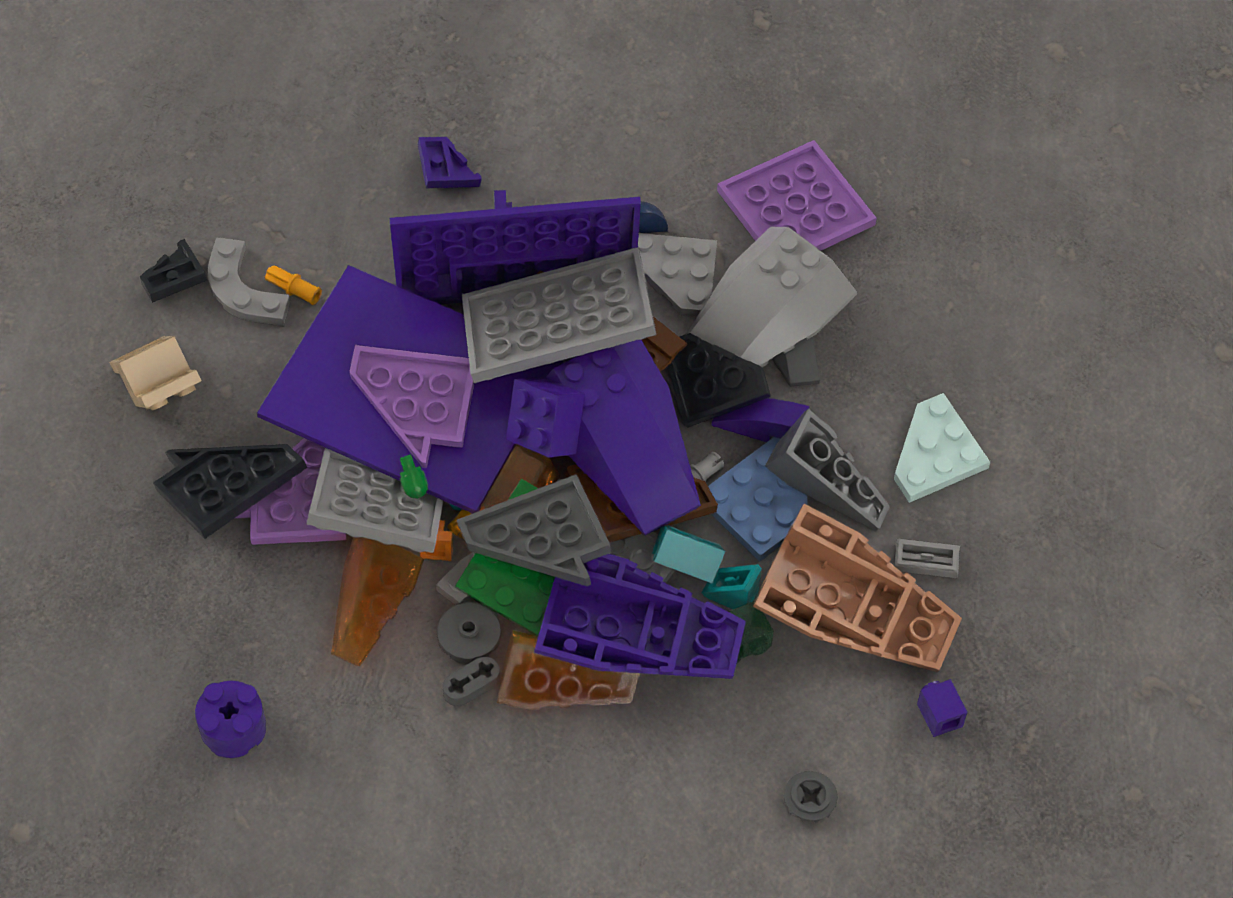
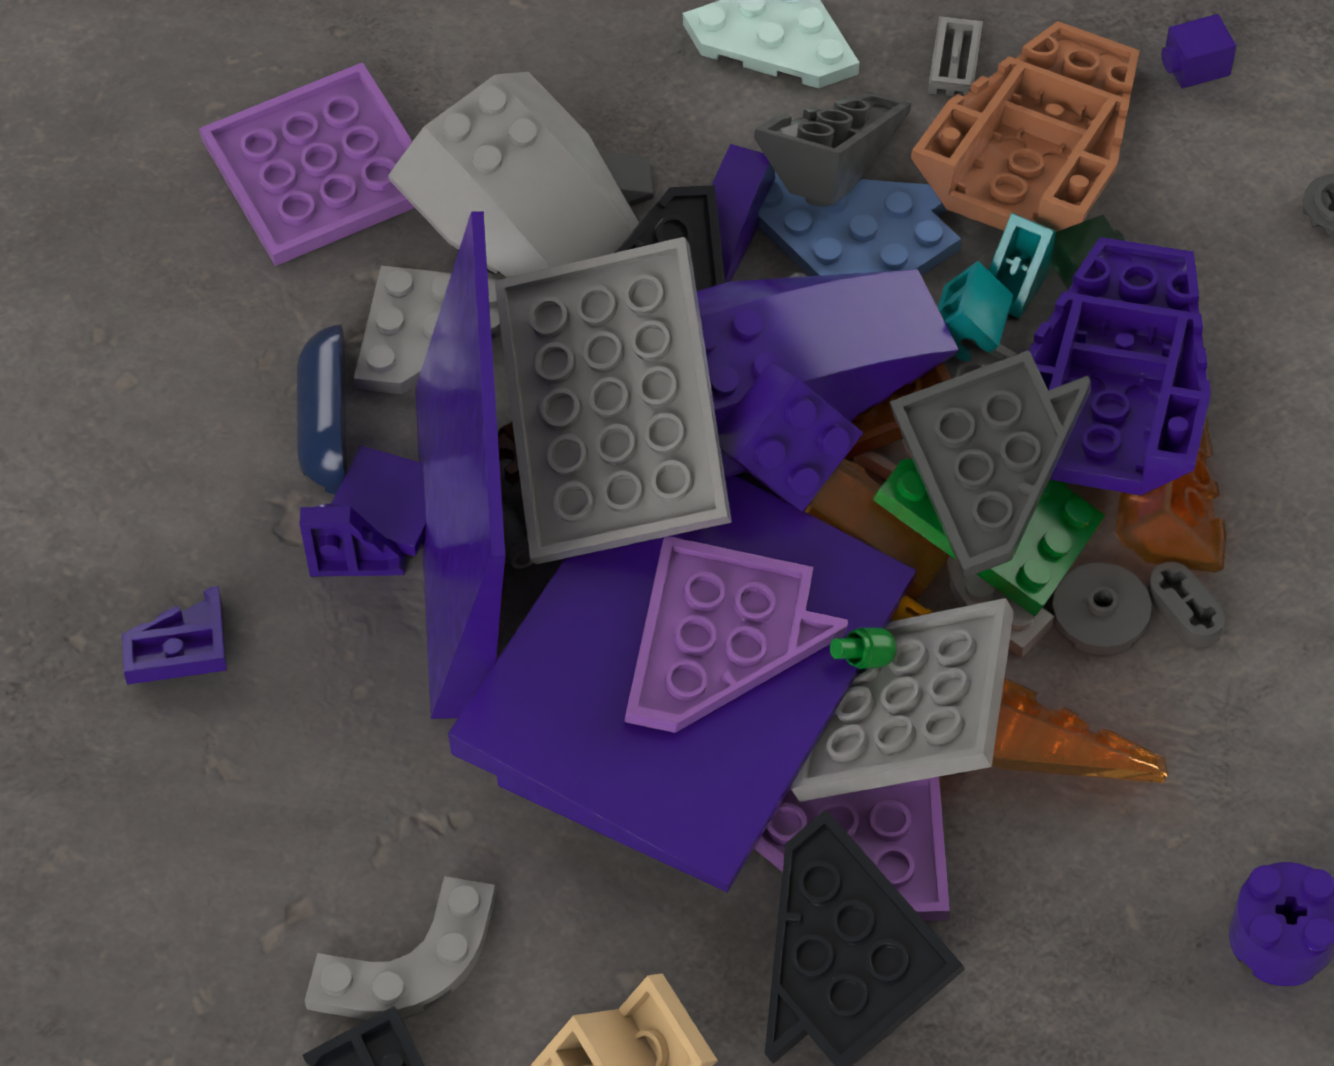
camera: 85 degrees left, 0 degrees up
(293, 284) = (419, 872): light orange axle -> none

